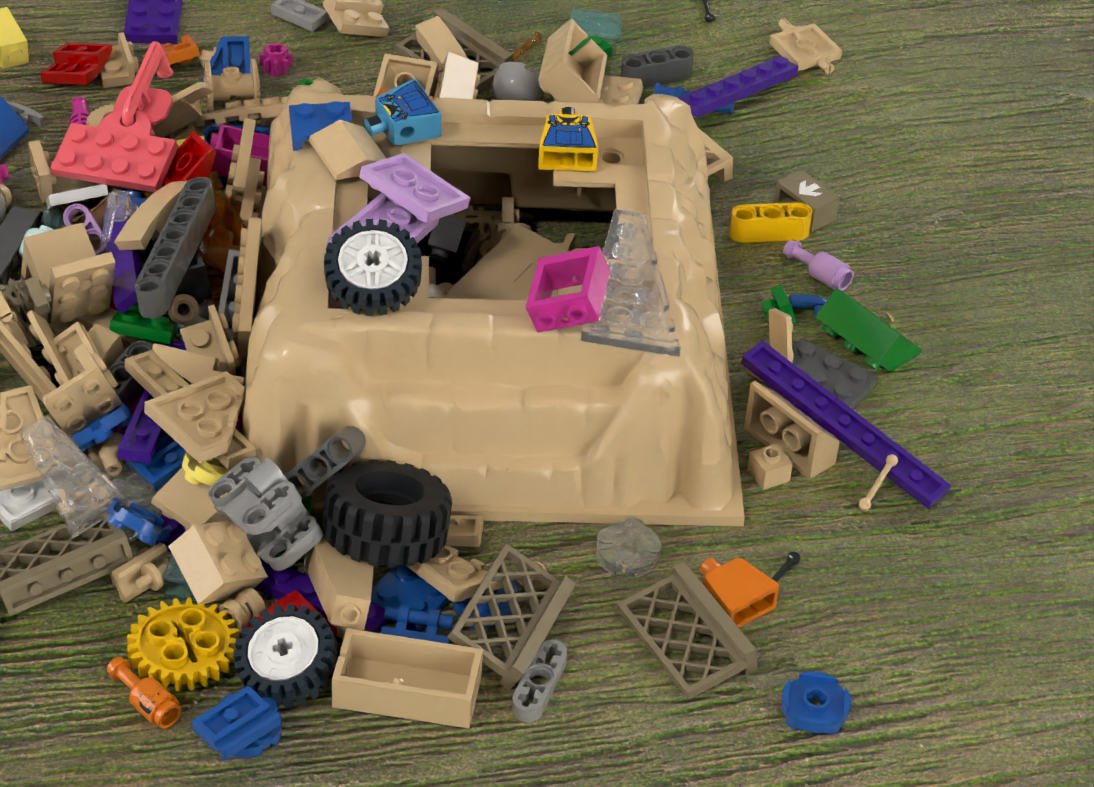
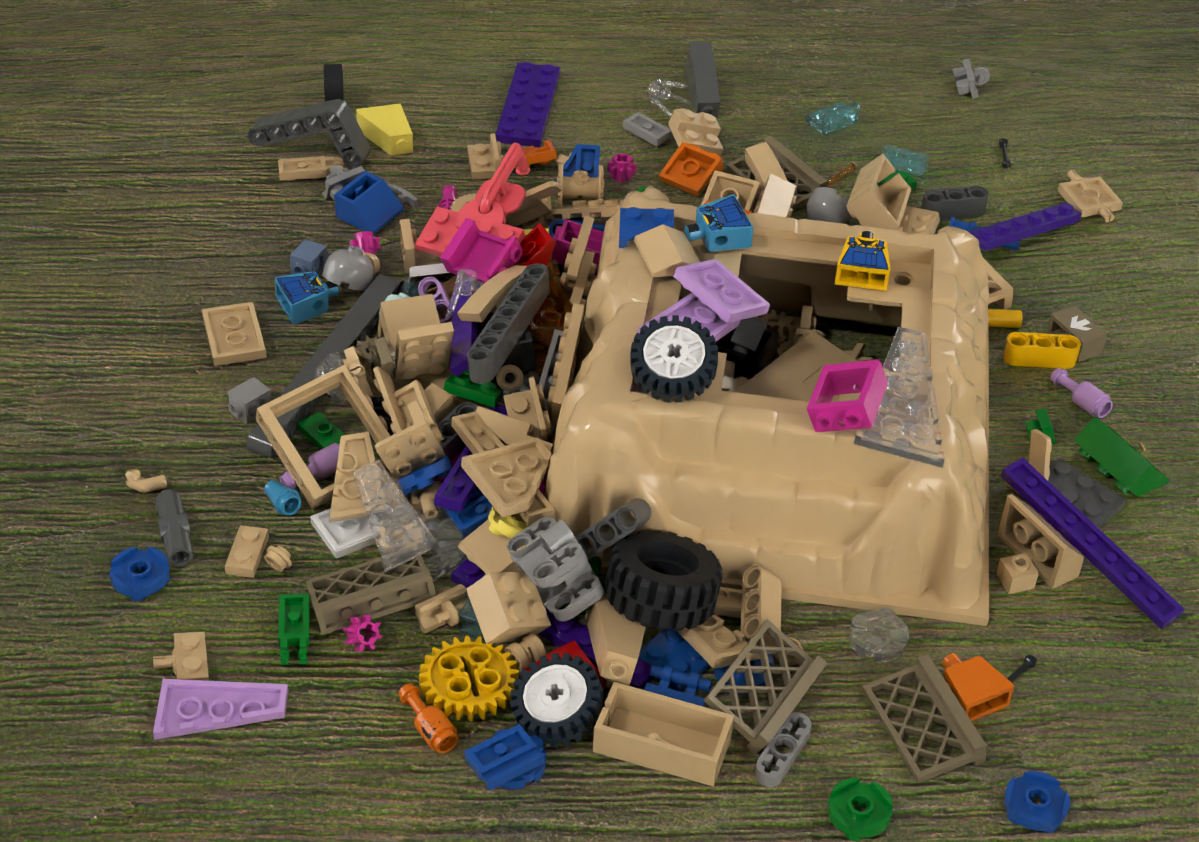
camera: 10 degrees right, 0 degrees up
(53, 617) = (356, 638): none -> dark pink gear
(77, 63) = (452, 156): red slope -> none
(129, 170) = (480, 252): none -> dark pink panel
(139, 519) = (445, 562): blue plate -> none
(356, 54) = (691, 168): none -> orange plate
(495, 525) = (760, 602): none -> tan beam
(624, 747) = (855, 823): none -> green plate
(727, 191) = (1005, 318): none -> yellow cylinder
(807, 301) = (1067, 425): blue arm -> none
(865, 503) = (1102, 617): tan hinge -> none

